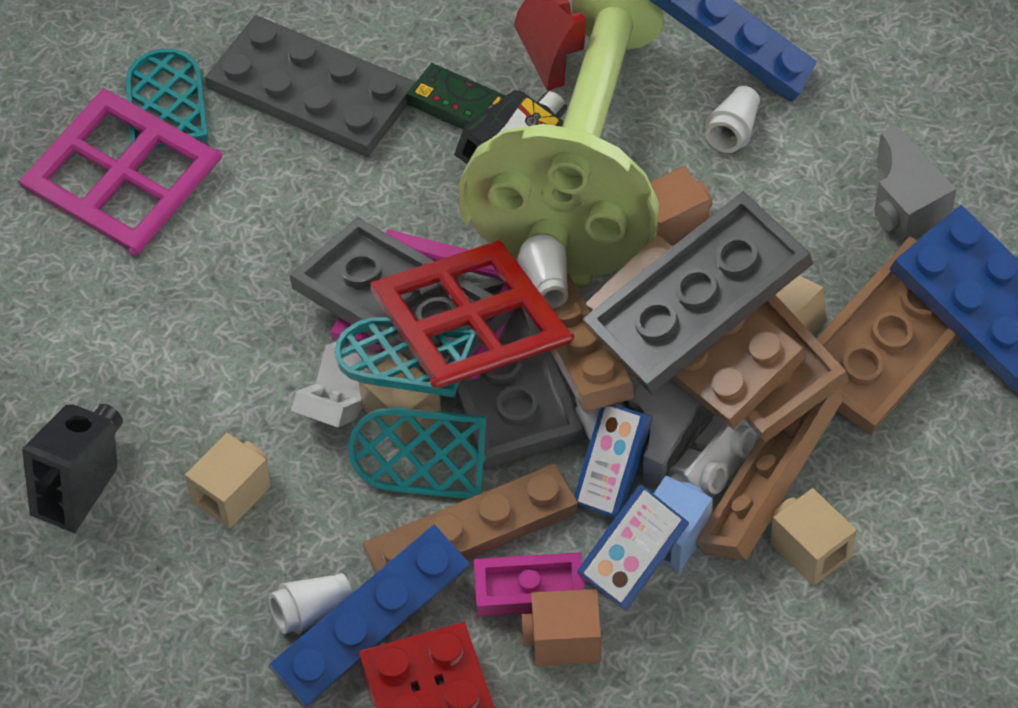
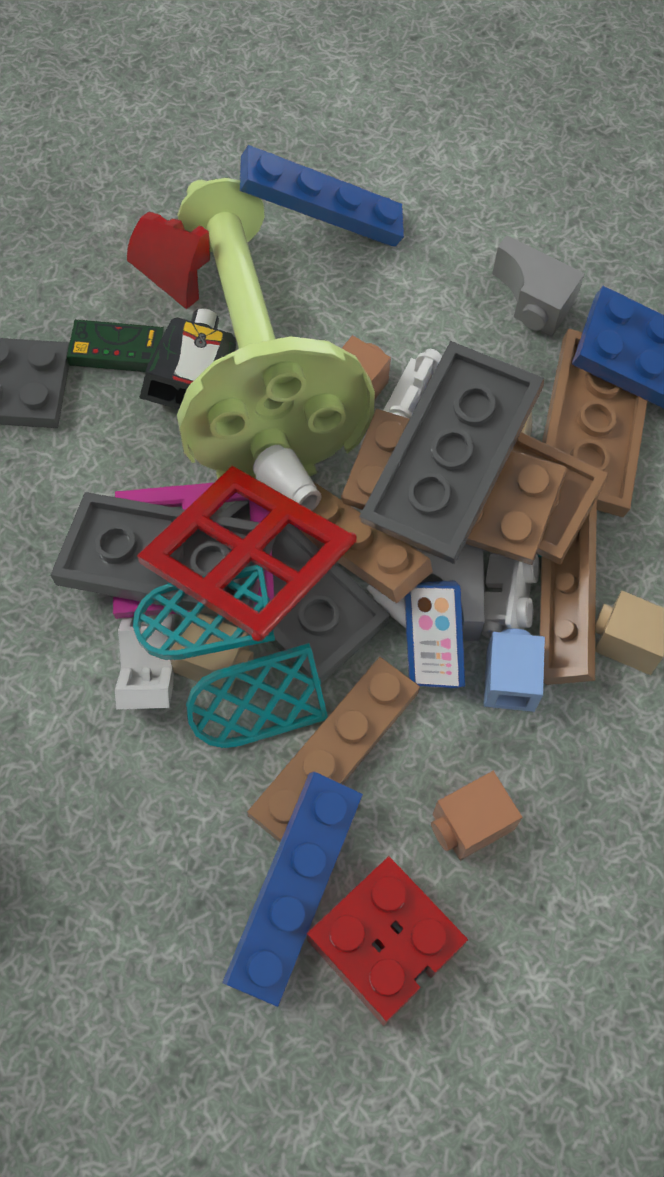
camera: 30 degrees left, 10 degrees up
(228, 479) = (88, 803): tan brick -> none
(305, 602) = (225, 899): white cone -> none
(507, 582) = (416, 785): dark pink plate -> none
(632, 548) = (506, 717): slope -> none
(733, 120) = (362, 279): white cone -> none

